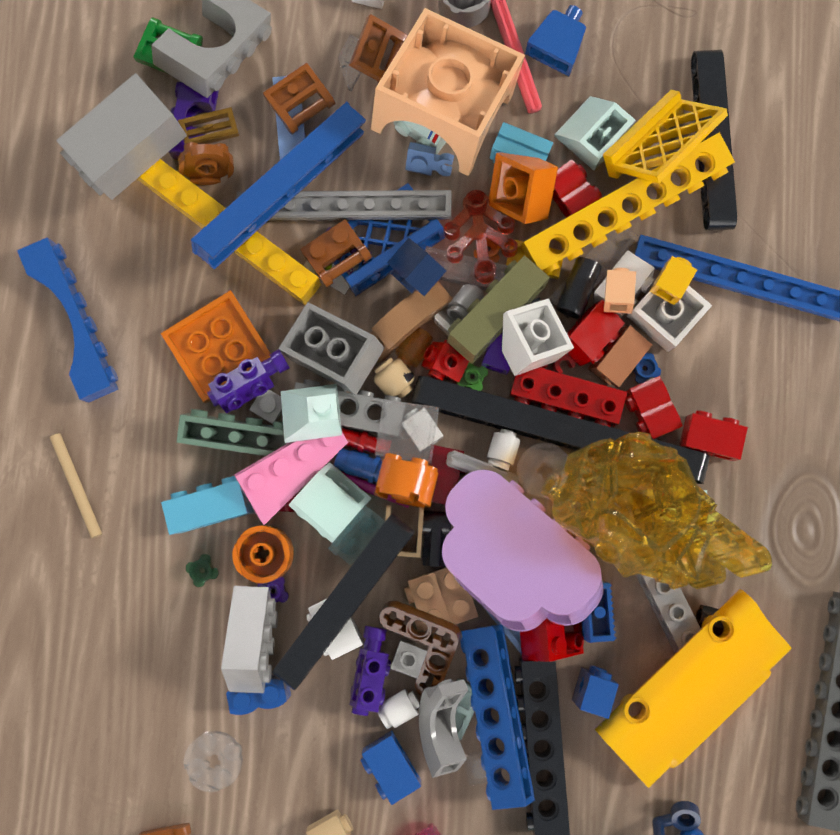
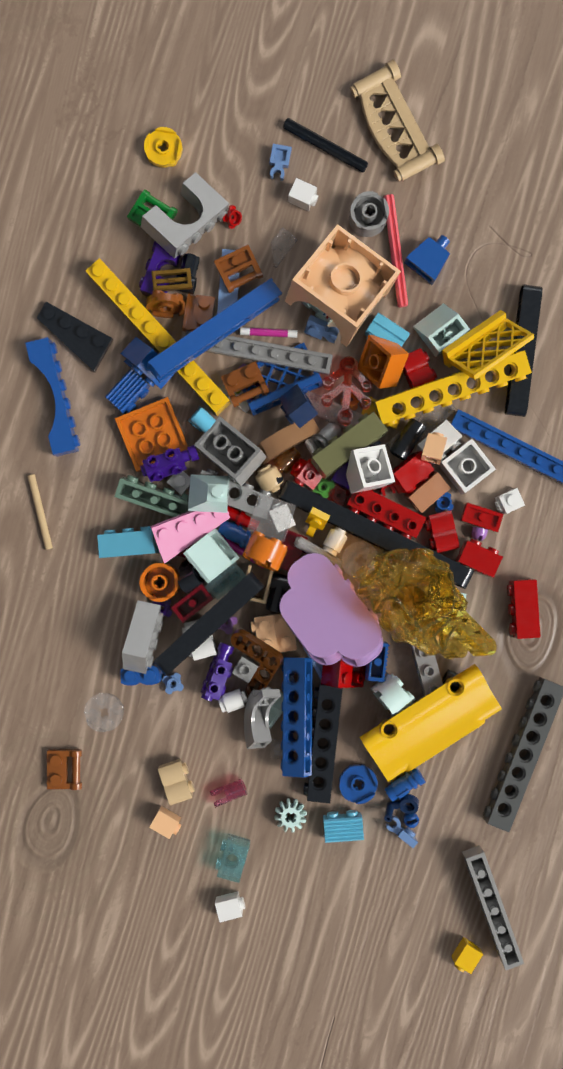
camera: 10 degrees right, 5 degrees up
(92, 230) = (78, 336): none -> black wing
(121, 138) = (111, 280): light grey brick -> none
(173, 293) = (128, 391): none -> blue brick
(177, 246) = (137, 358): none -> blue brick
(193, 569) = (111, 585): clear green plate -> none
(233, 99) = (189, 261): none -> black piece
(252, 164) = (197, 311): none -> dark orange plate
(283, 313) = (202, 420): none -> medium azure piece
(285, 32) = (236, 219): none -> red plate
(303, 539) = (189, 577): none -> black piece
(315, 575) = (192, 603): none -> dark red brick
(315, 700) = (173, 678): none -> medium blue plate
(356, 178) = (268, 332): none -> dark pink bar
(372, 46) = (296, 240): dark orange plate -> none
(373, 603) = (228, 628): none -> medium lavender plate
(391, 768) = (220, 737): blue brick -> none
(472, 423) = (316, 519): none -> yellow plate
(502, 380) = (343, 494): none -> clear red plate
(595, 691) = (365, 712): blue brick -> none
(621, 800) = (356, 794): none -> blue plate
(630, 657) = (392, 695): none -> light aqua brick
(670, 790) = (404, 784): none -> blue axle
(673, 279) = (472, 447): yellow brick -> none
(704, 378) = (482, 517): none -> red plate
(705, 401) = (479, 533): none -> medium lavender hinge
(737, 350) = (509, 501): none -> white bracket
(792, 497) = (524, 609): none -> red brick

